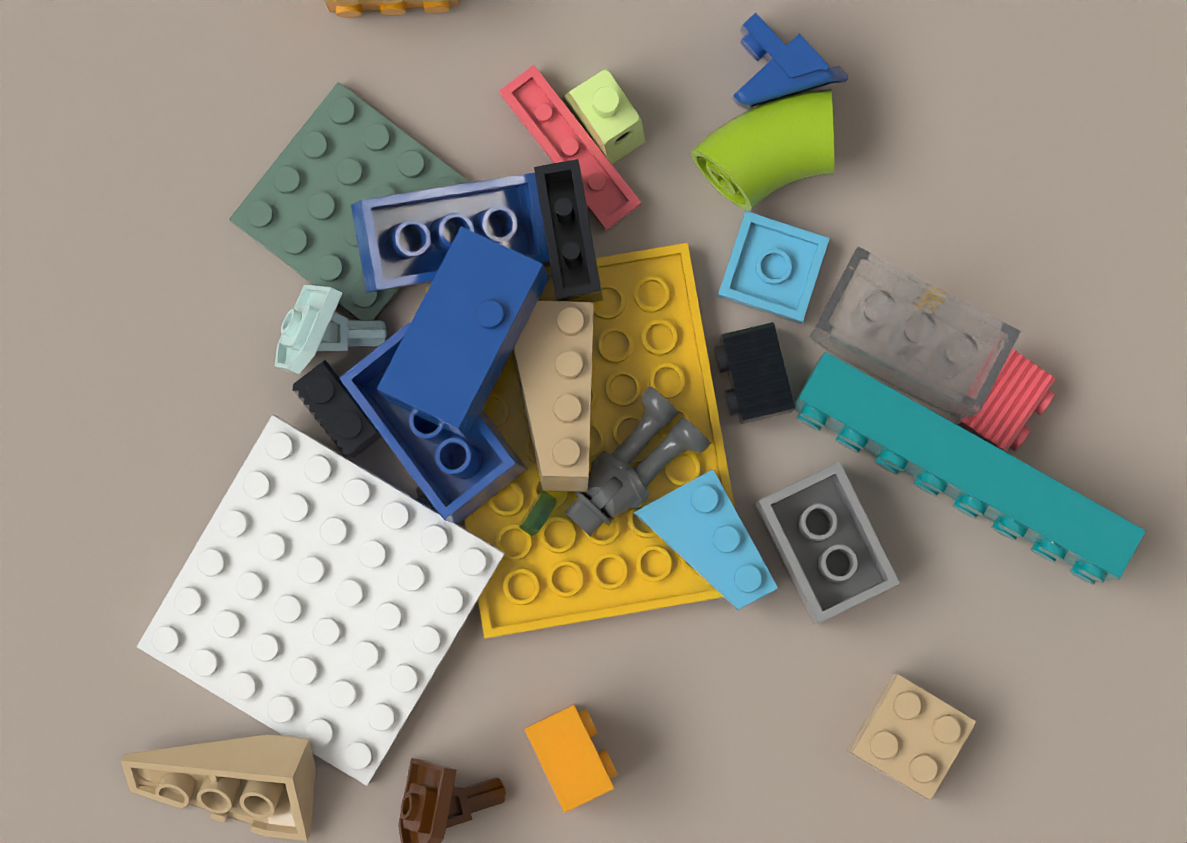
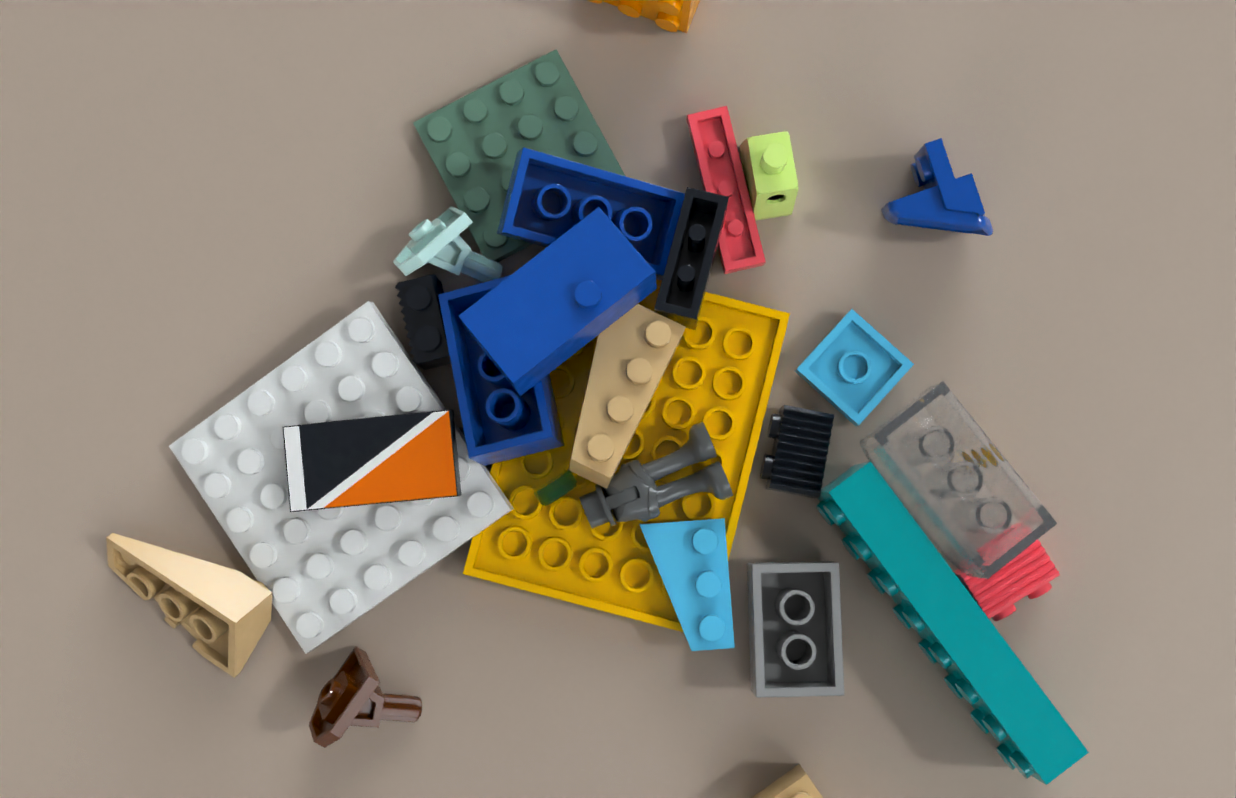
camera: 30 degrees right, 0 degrees up
(348, 567) = (372, 460): none -> tile
(570, 757) = (486, 714): light orange brick -> none
(769, 148) = (898, 263): lime brick -> none

